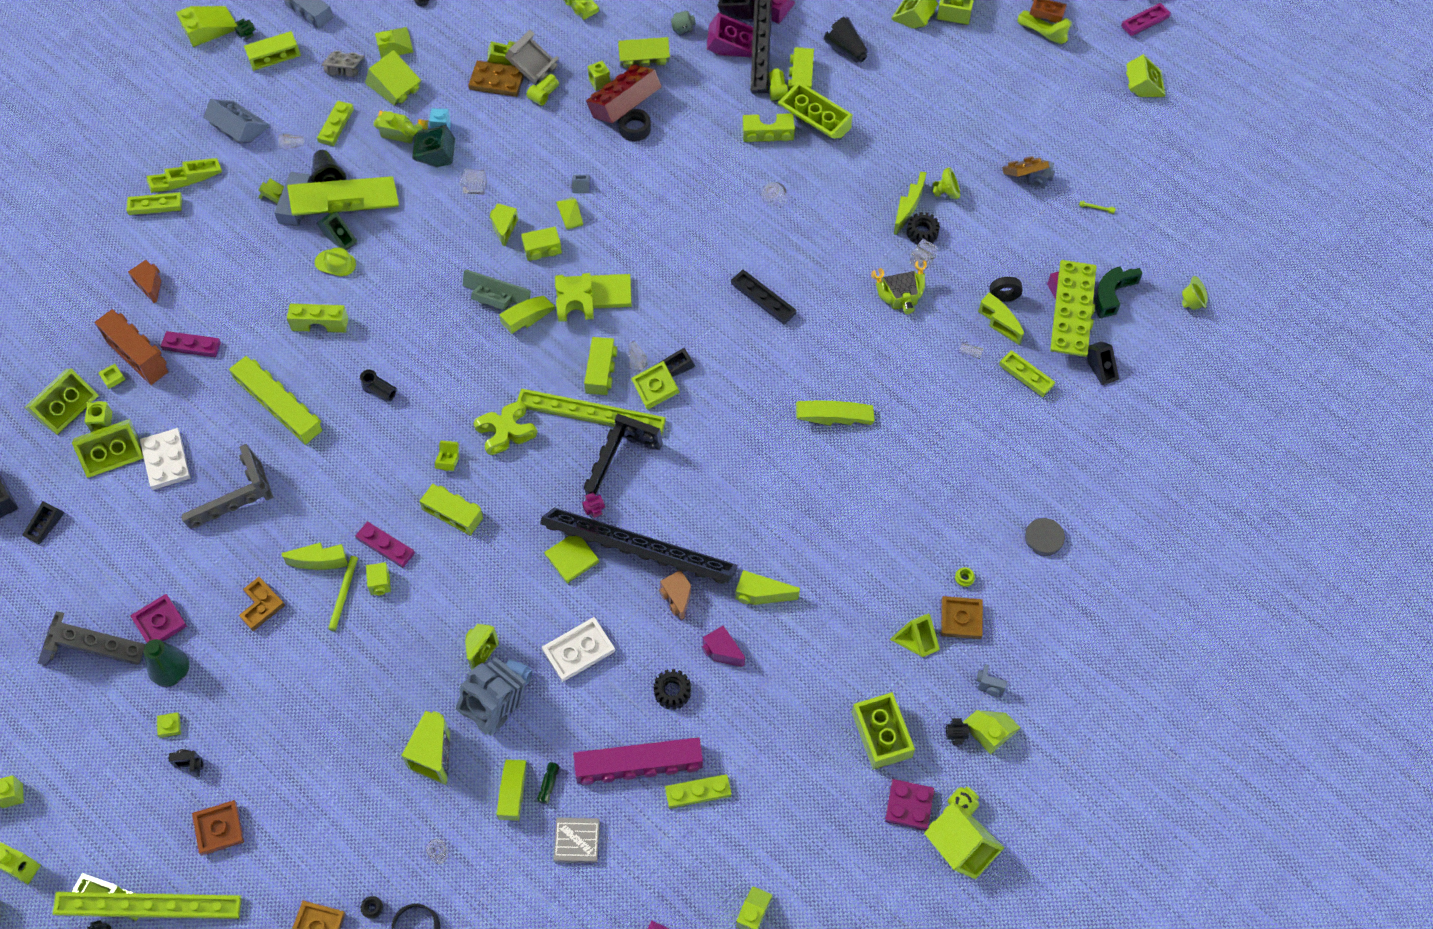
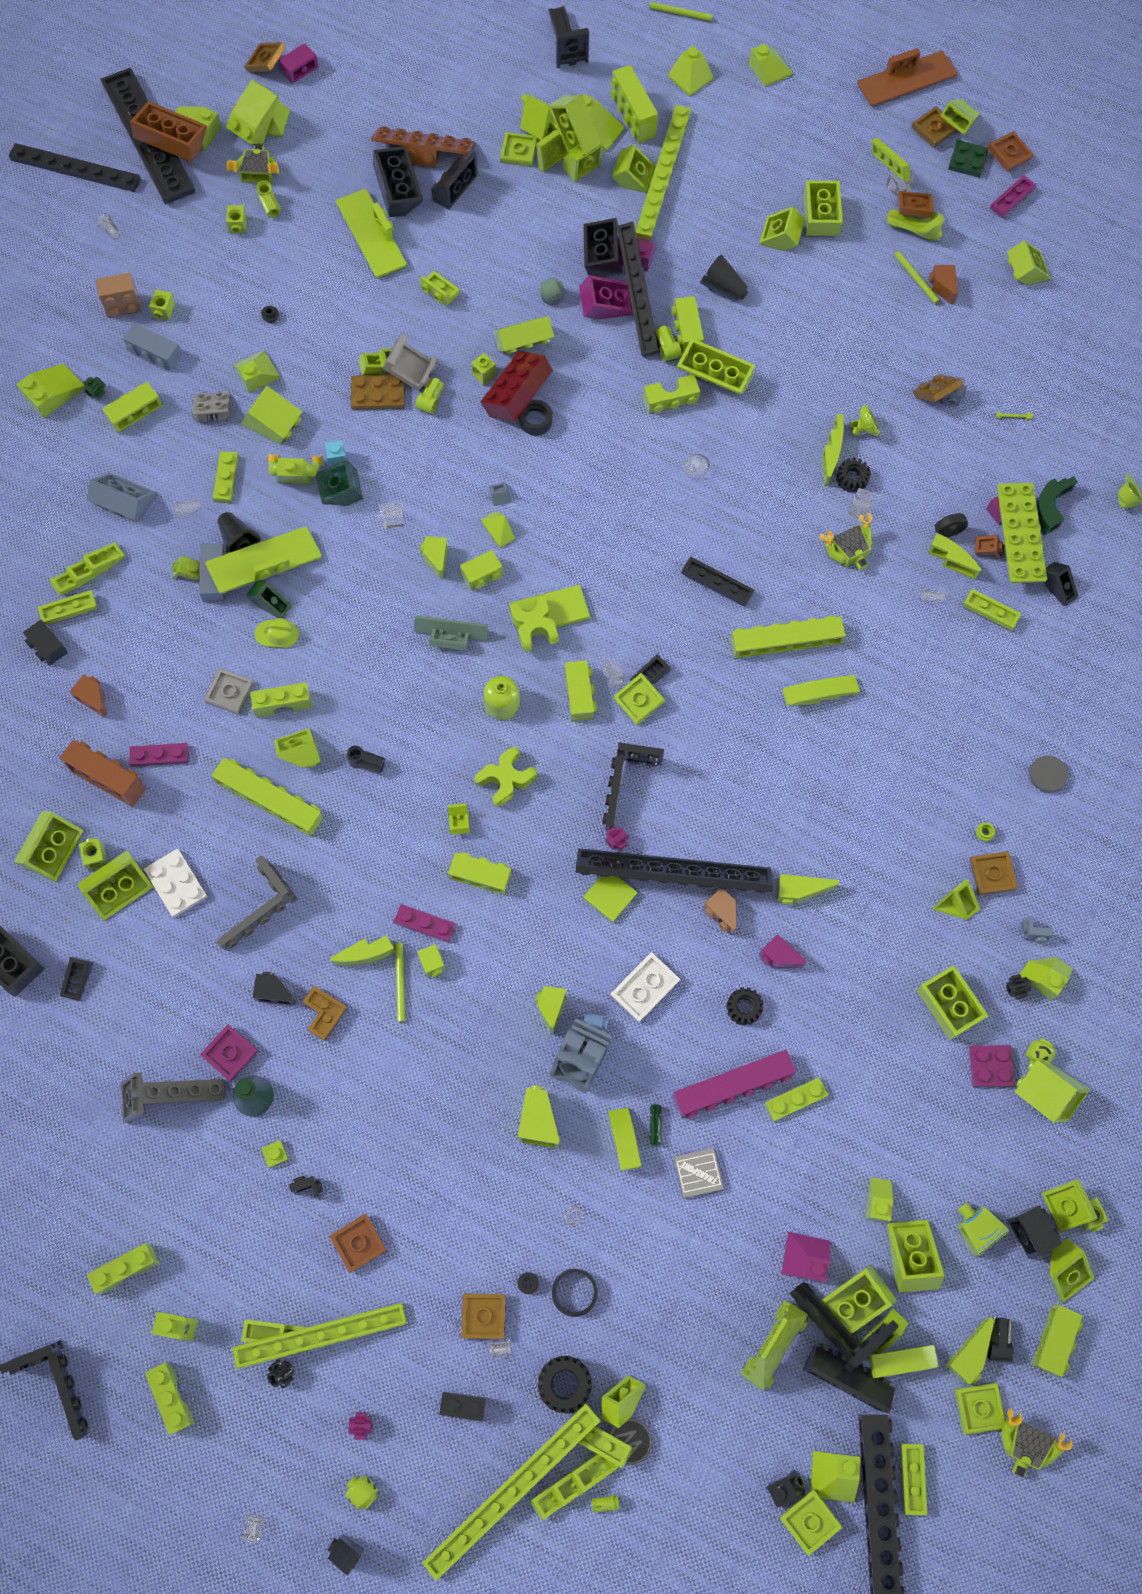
camera: 15 degrees left, 10 degrees up
(111, 376) = (90, 807): lime plate -> none
(123, 228) = (45, 642): none -> black brick
(217, 572) = (271, 990): none -> black slope
(273, 302) = (229, 691): none -> light grey tile
(319, 364) = (298, 749): none -> lime slope
(522, 356) = (501, 697): none -> lime cylinder
(525, 313) = (489, 649): lime slope -> none
(583, 410) = (580, 740): lime tile -> none
(816, 358) = (787, 636): none -> lime brick
(1034, 72) = (914, 274): none -> lime bar
(1039, 315) = (989, 546): none -> dark orange bracket
(1058, 79) = (944, 282): none -> dark orange slope

